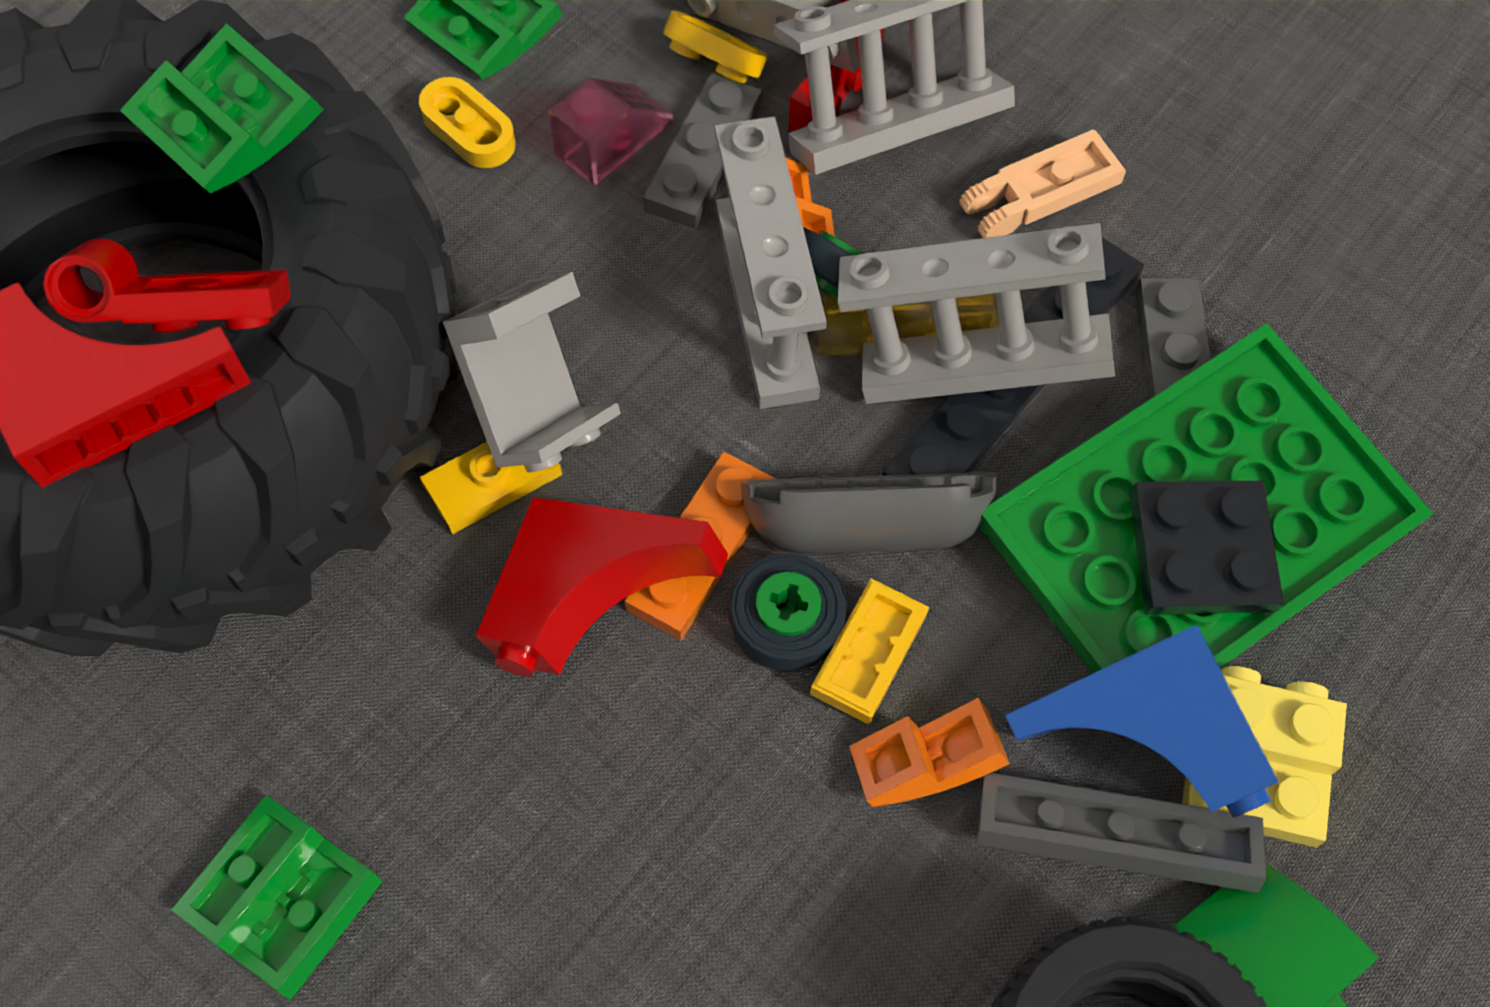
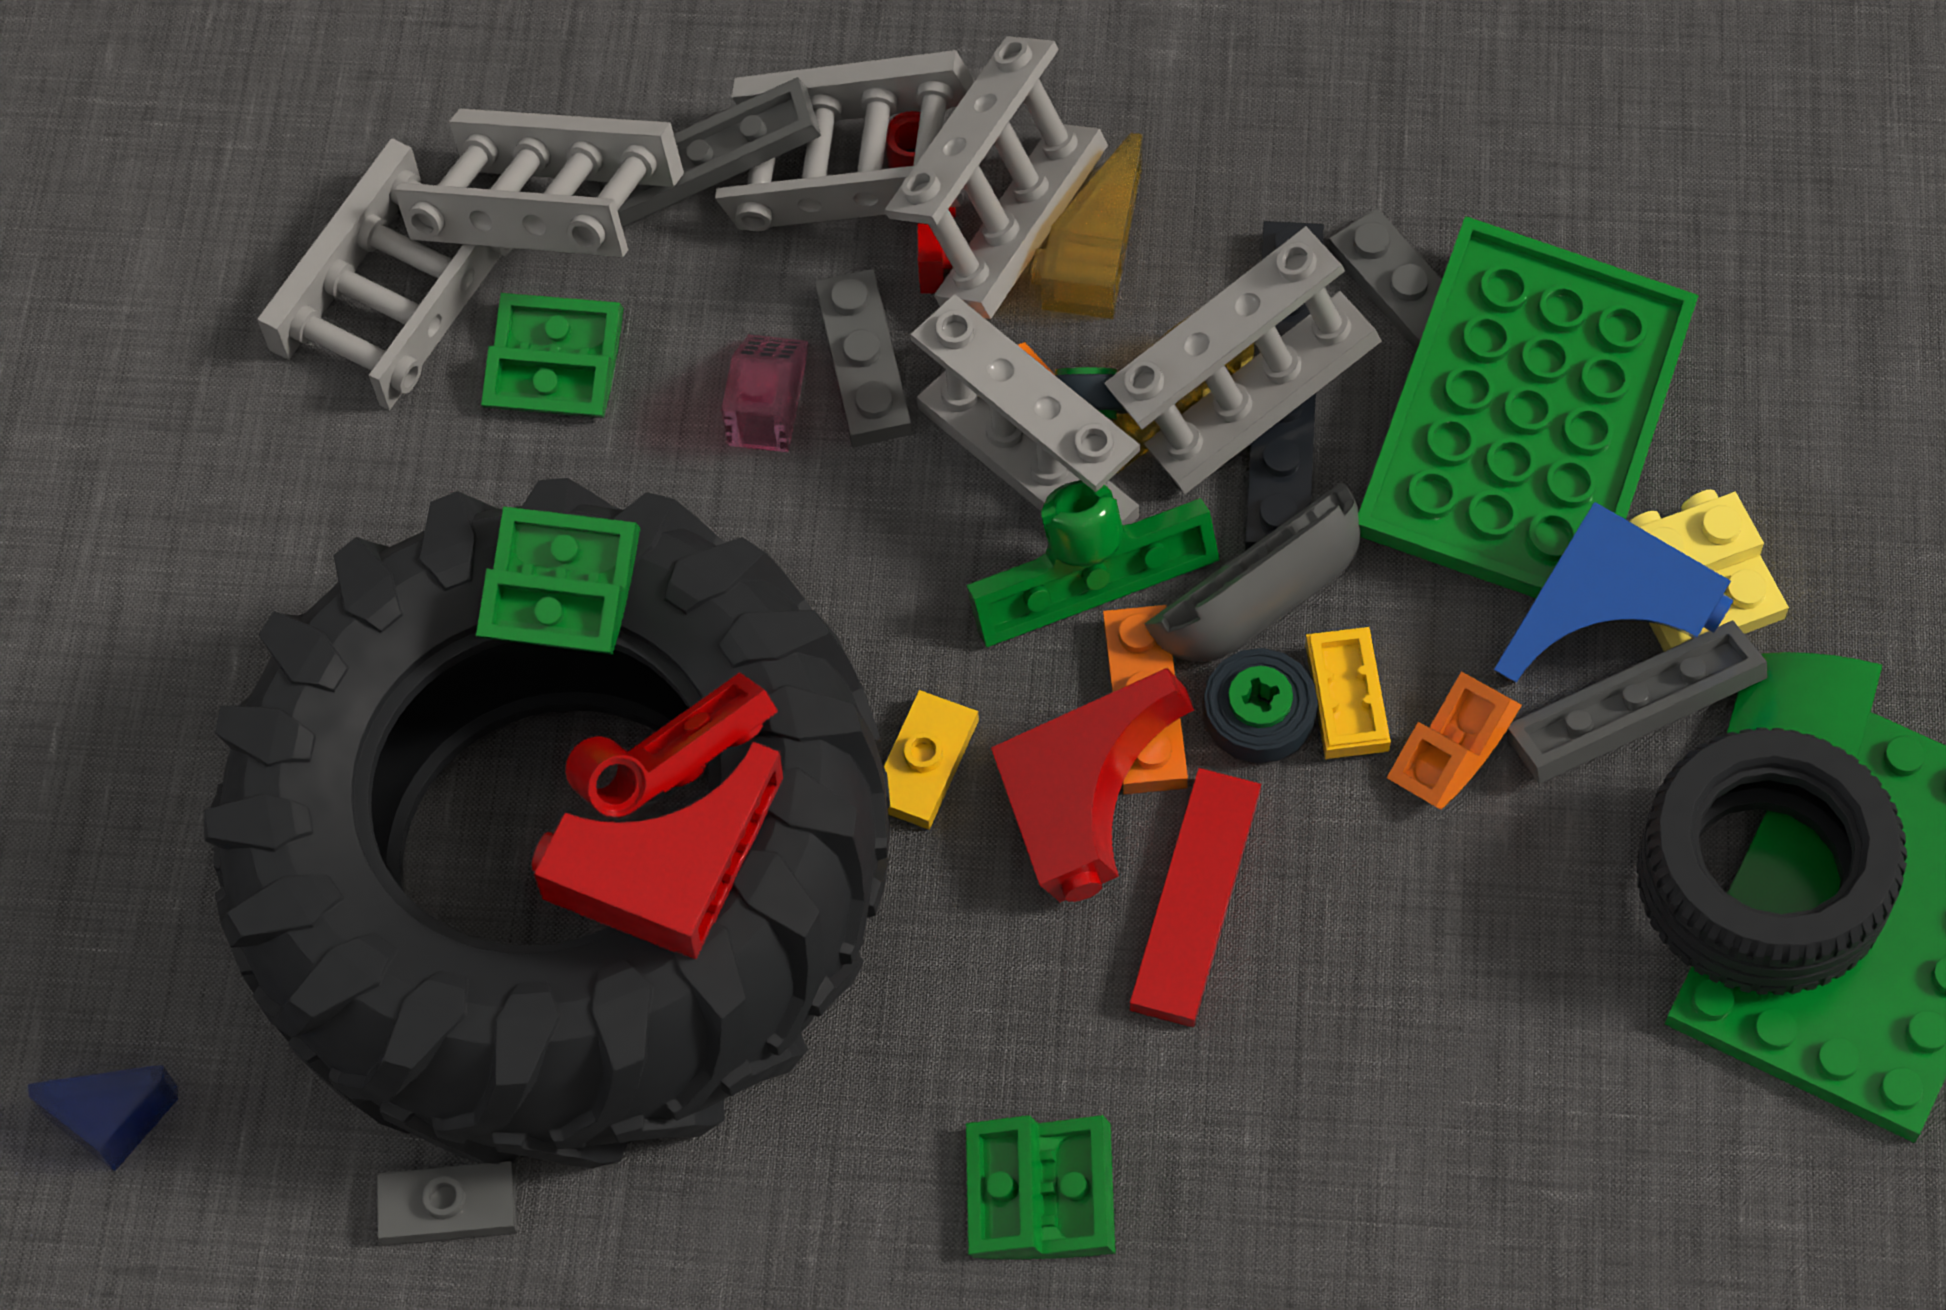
camera: 30 degrees left, 0 degrees up
(472, 125) = (636, 464): yellow plate -> none
(521, 375) = (892, 649): light grey panel -> none
(607, 737) = (1195, 898): none -> red tile
(696, 38) = (821, 251): yellow plate -> none
(740, 403) = (1090, 561): none -> green plate
(935, 165) = (1090, 239): none -> clear yellow slope
(1044, 184) = (1188, 200): light nougat hinge -> none
(1205, 547) = (1548, 437): black plate -> none

